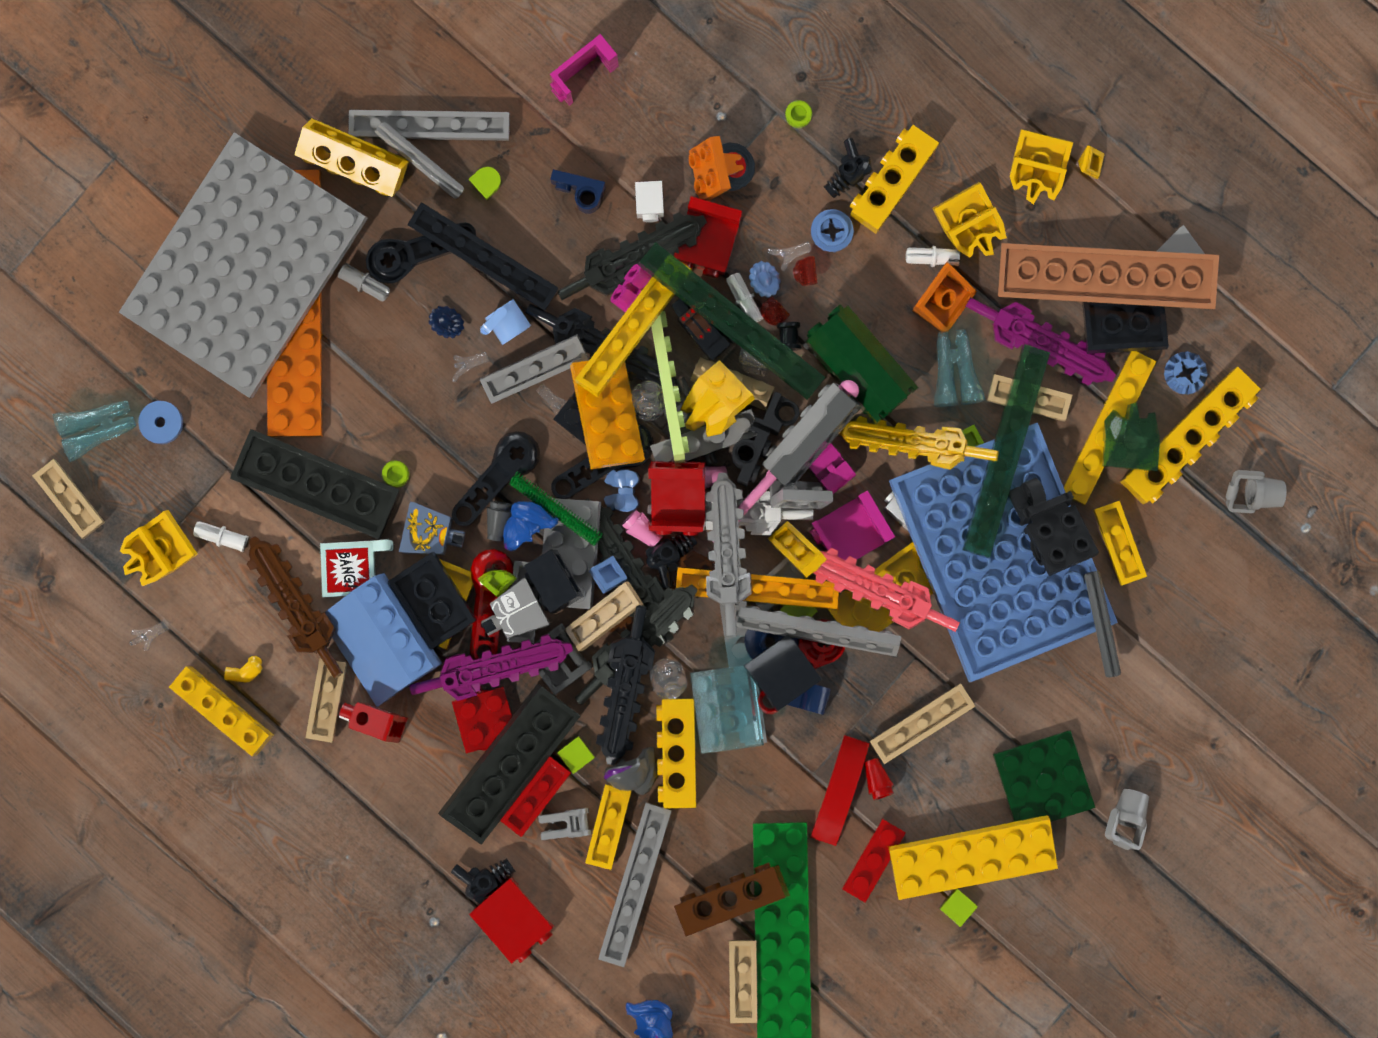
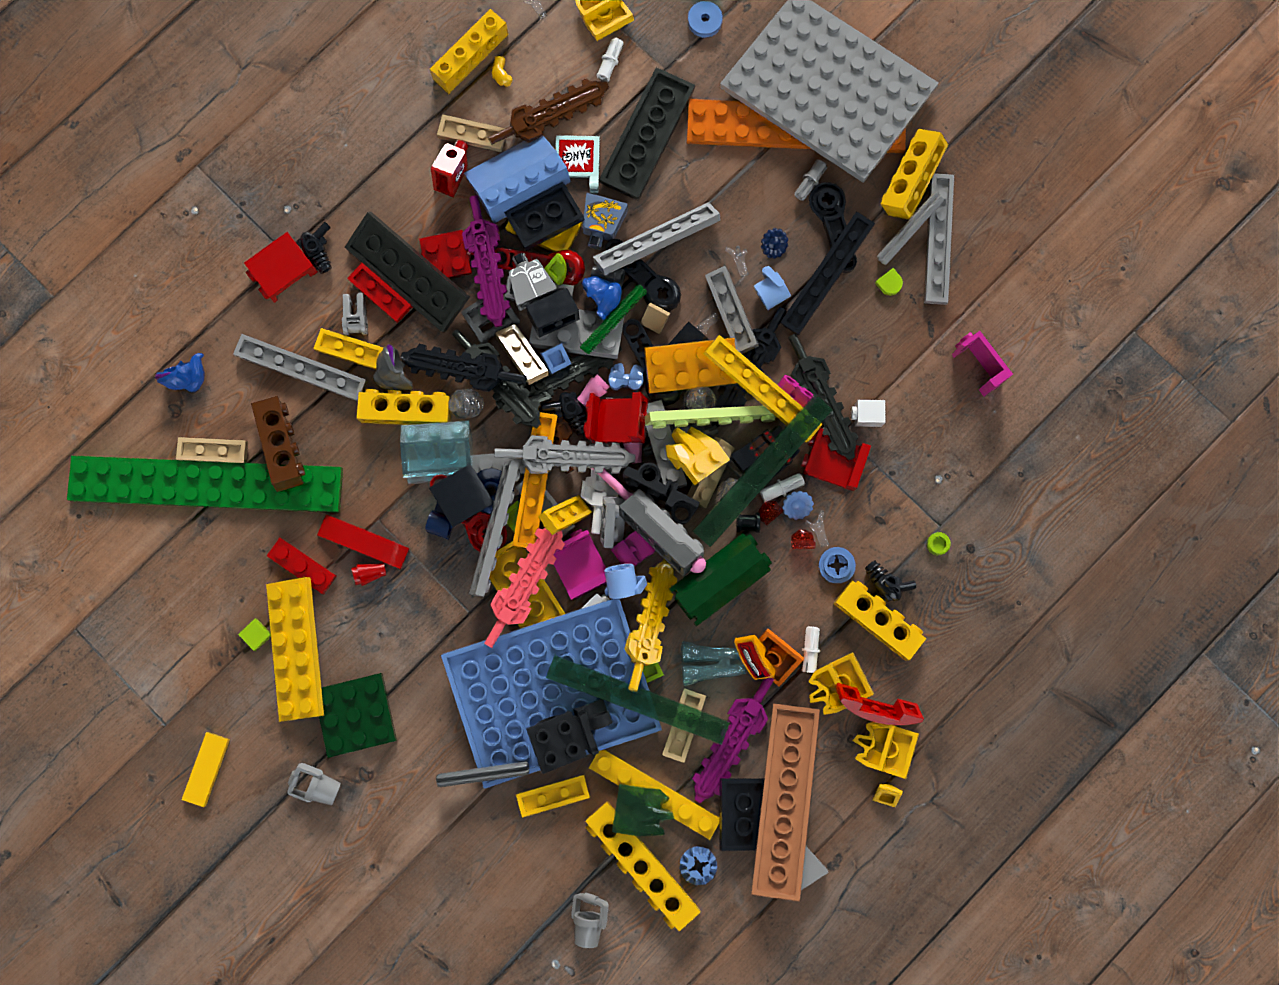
camera: 90 degrees right, 5 degrees down
(395, 474) = (651, 197): lime tile -> none
(451, 463) = (656, 238): none -> light grey plate
(548, 460) = (655, 318): none -> tan tile
(566, 181) = (882, 358): dark blue plate -> none
(576, 755) = (411, 327): lime tile -> none
(720, 167) = (894, 473): orange plate -> none
(872, 476) = (623, 582): none -> light blue piece
(922, 723) = (412, 614): tan plate -> none
(947, 321) = (753, 657): none -> slope
(999, 151) = (900, 713): none -> red slope
(1118, 949) = (205, 769): none -> yellow tile

